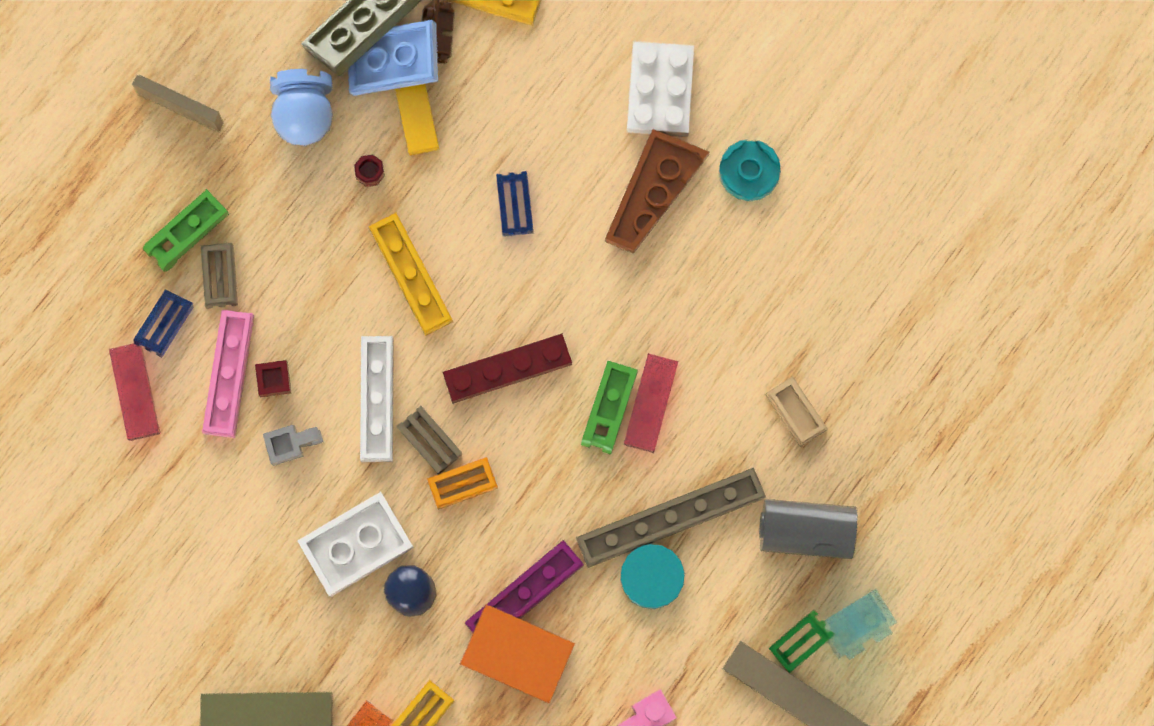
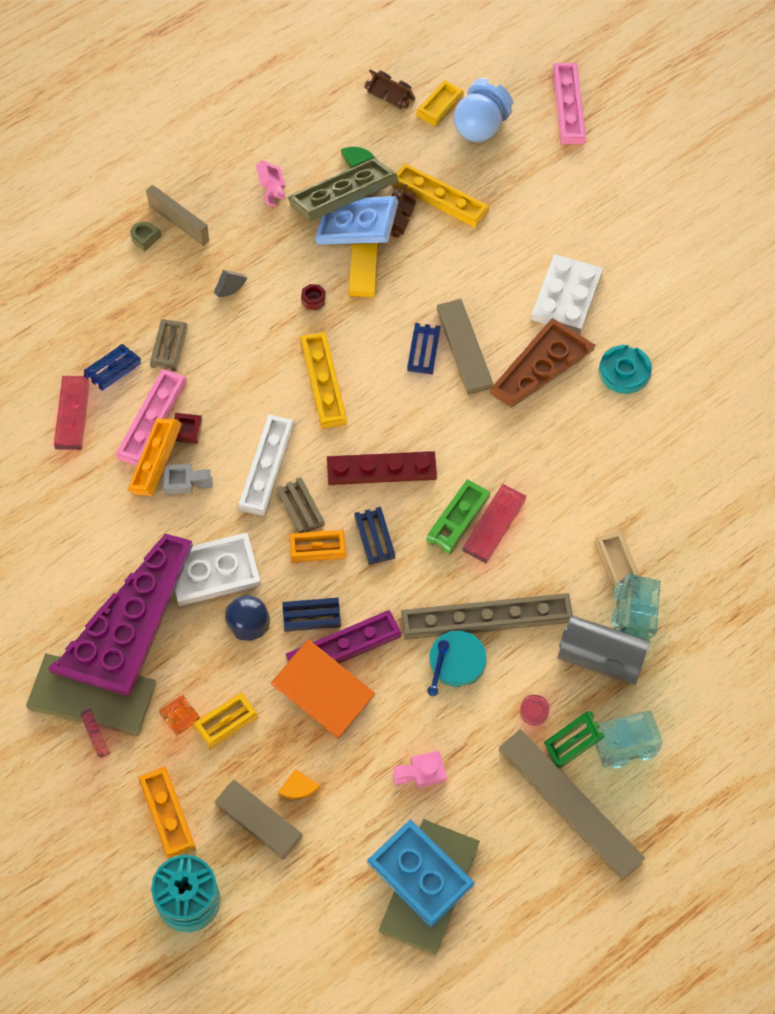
camera: 15 degrees right, 15 degrees down
(145, 137) = (144, 235): none -> olive tile
(186, 230) = (153, 305): bright green plate -> none
(248, 425) = (154, 456): none -> light orange tile
(266, 178) = (229, 283): none -> dark grey tile
(275, 24) = (272, 179): none -> bright pink plate
(280, 647) = (124, 628): none -> magenta wing
(301, 109) = (274, 233): light blue tile -> none
(509, 430) = (369, 515): none -> dark blue tile
(509, 569) = (306, 605): none -> dark blue tile
(560, 188) = (464, 346): none -> dark tan tile
(633, 570) = (443, 646): none -> clear blue hinge
(749, 613) = (534, 709): none -> clear pink tile
(831, 468) = (637, 606): none -> clear light blue brick

